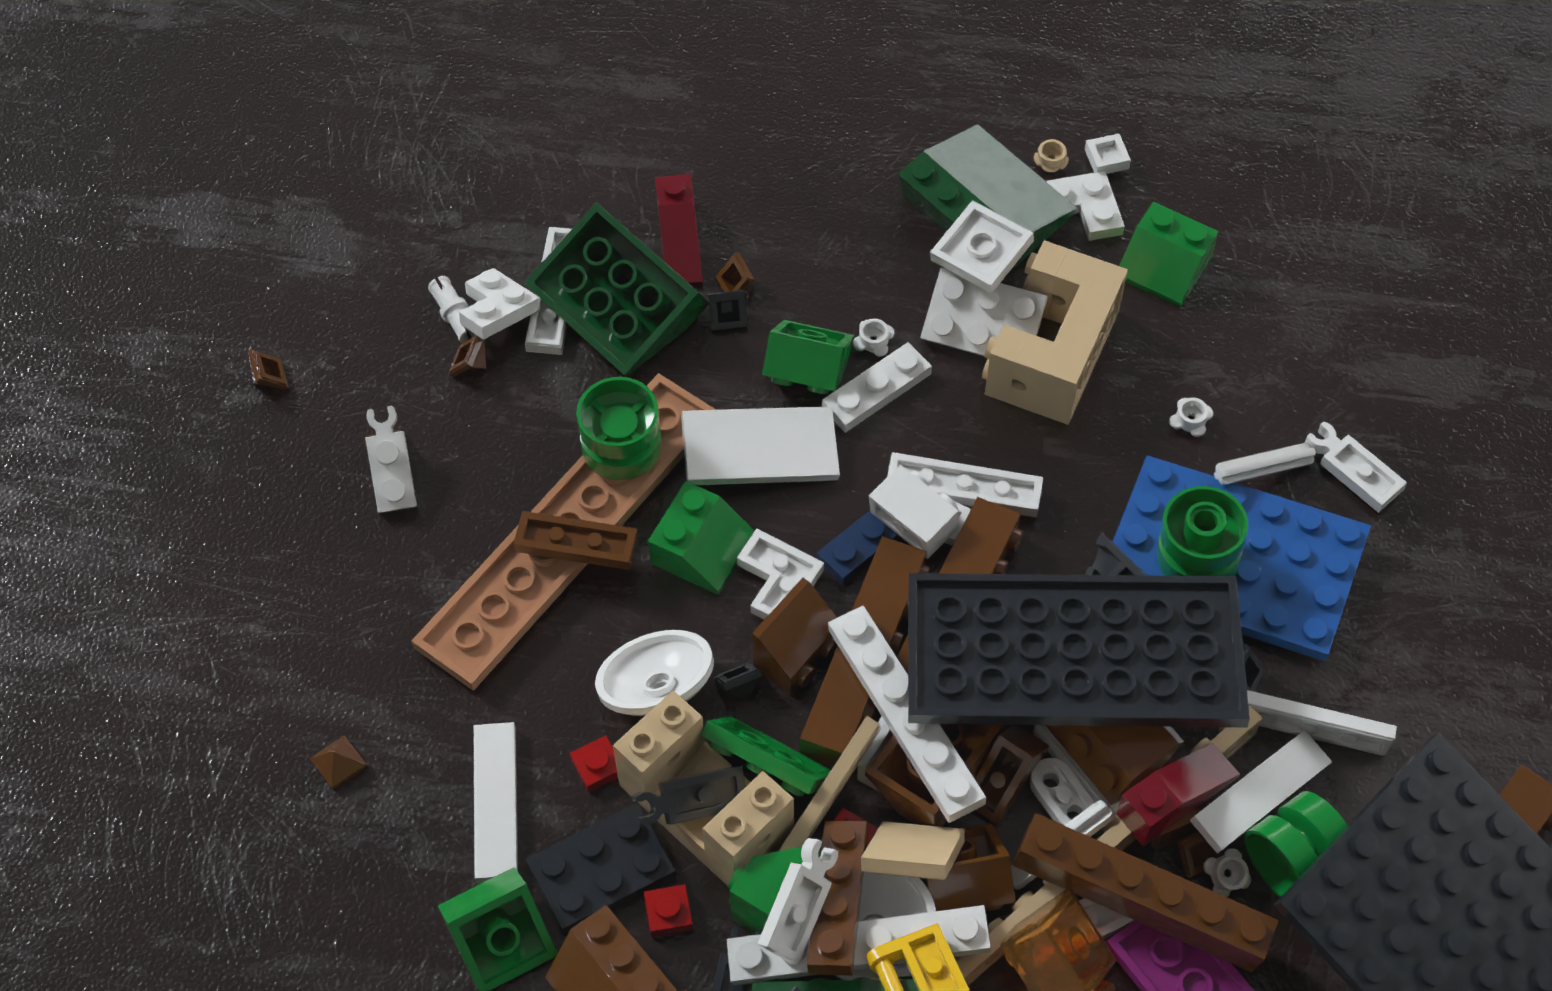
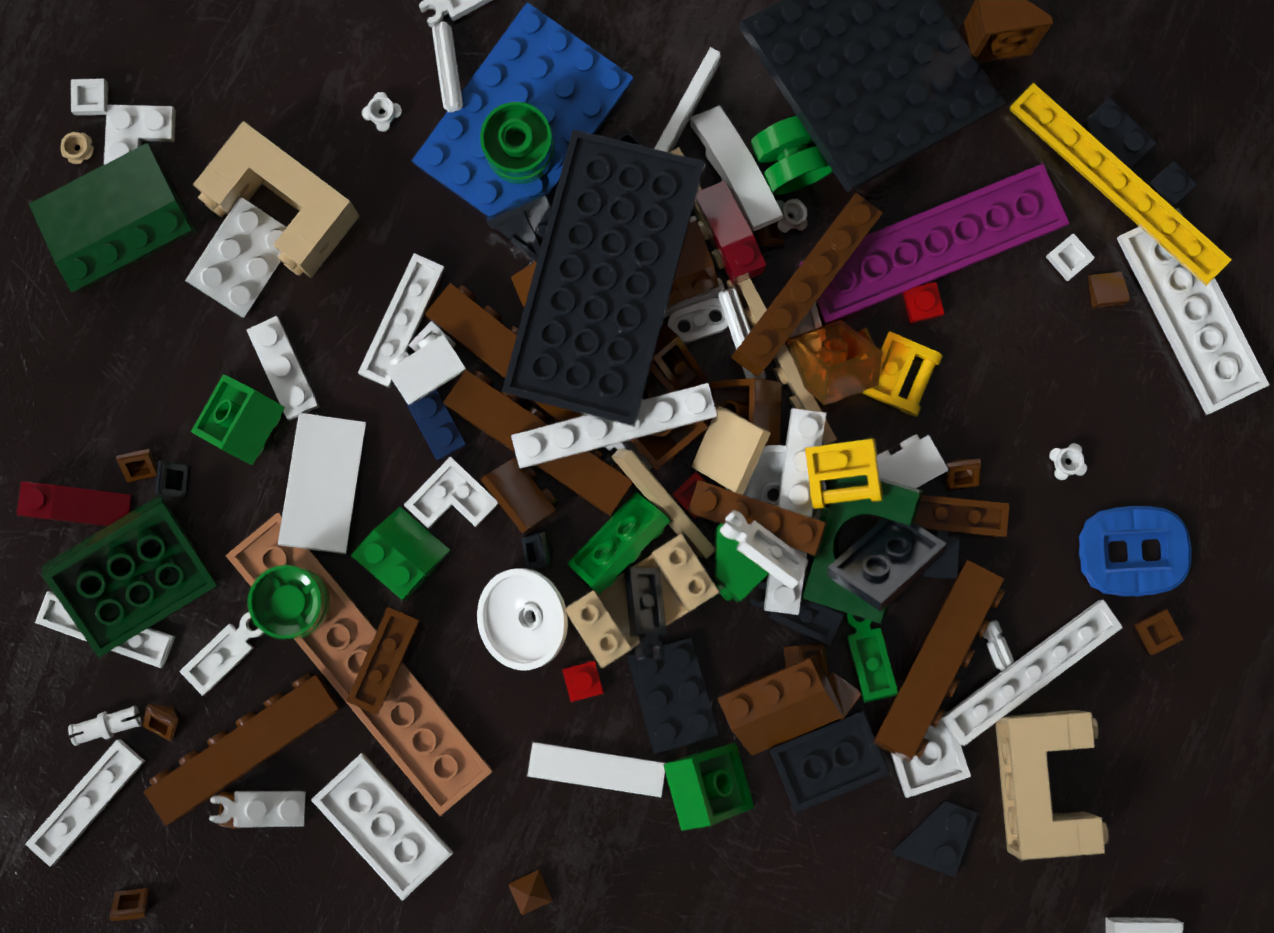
camera: 80 degrees left, 25 degrees up
(370, 309) = (85, 802): none -> white plate
(390, 593) = (382, 826): none -> white tile
(453, 436) = (242, 749): none -> reddish brown brick
(497, 305) = (116, 679): white plate -> none
(544, 392) = (220, 656): none -> white plate
(668, 910) = (720, 649): red plate -> none
(877, 329) = (222, 360): white plate -> none
(981, 246) = (182, 240): white plate -> none
(1168, 254) = (214, 79): green slope -> none

